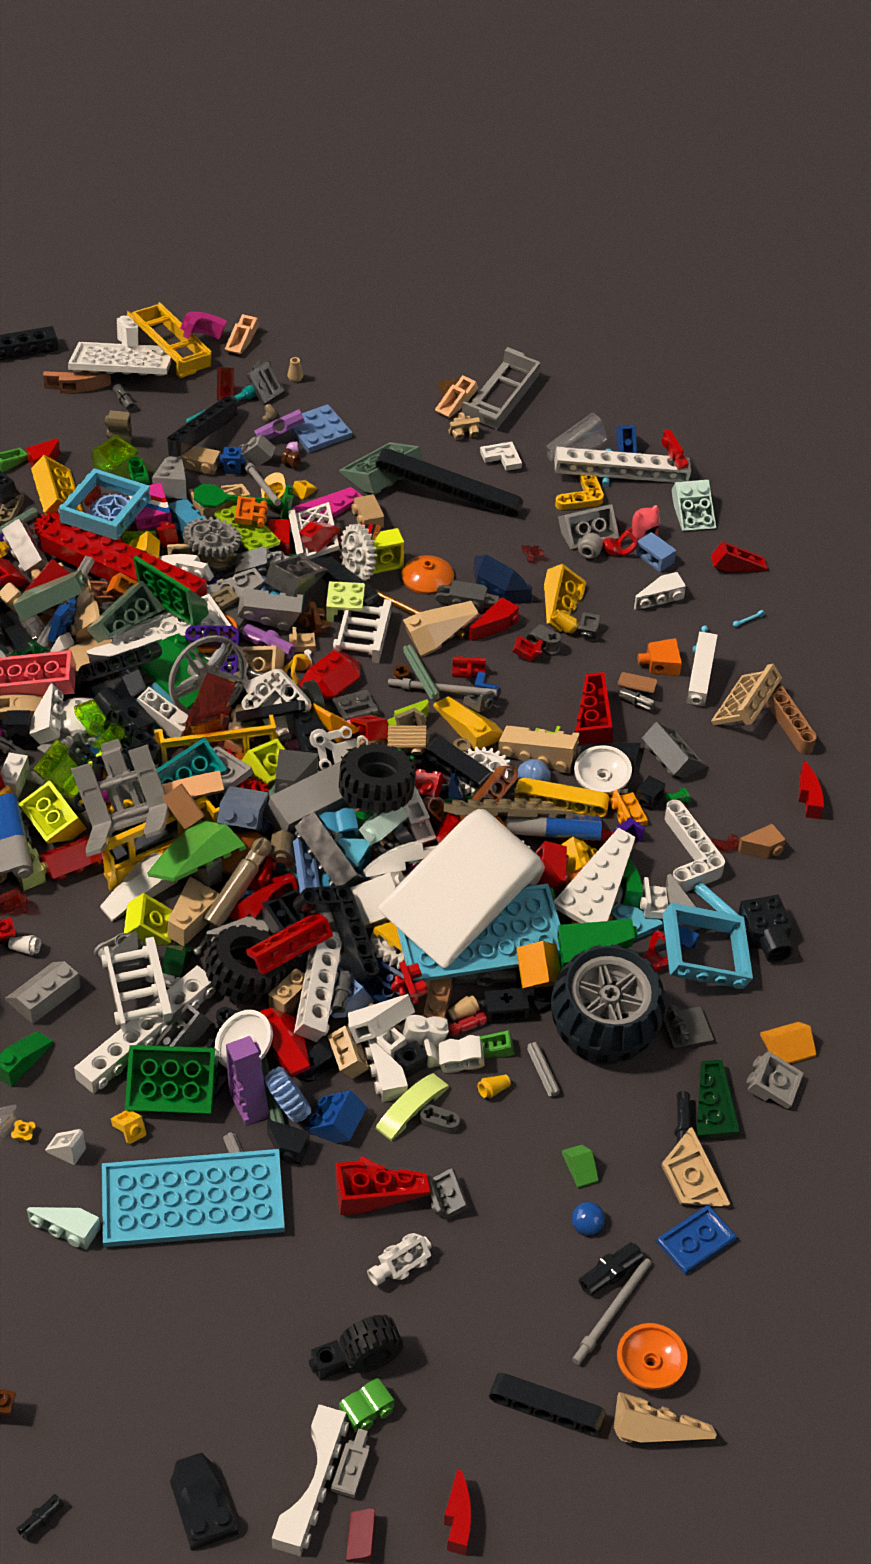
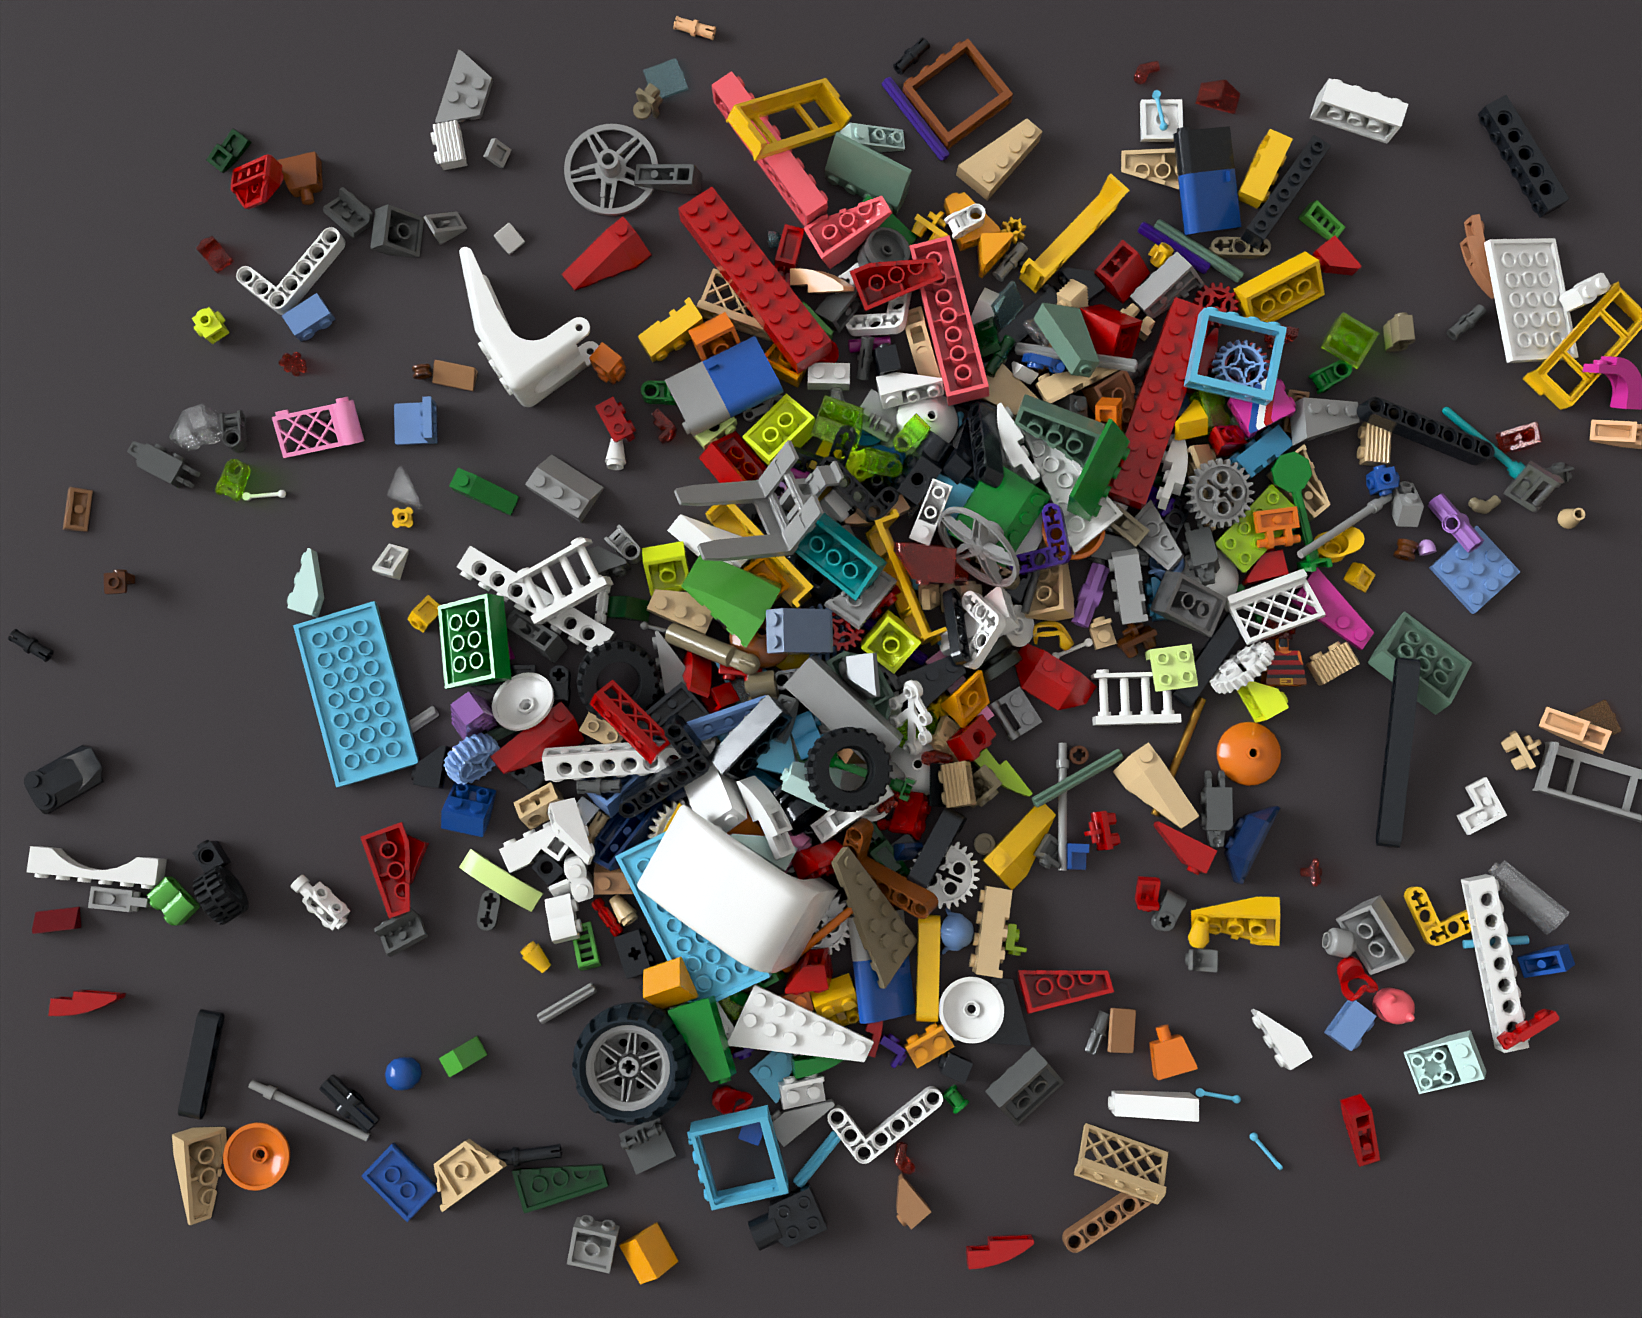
camera: 80 degrees right, 35 degrees up
(183, 806) = (783, 568): medium nougat slope -> none
(198, 785) = (816, 571): light nougat slope -> none
(317, 535) = (1260, 616): red slope -> none
(415, 989) = (603, 853): red hips -> none

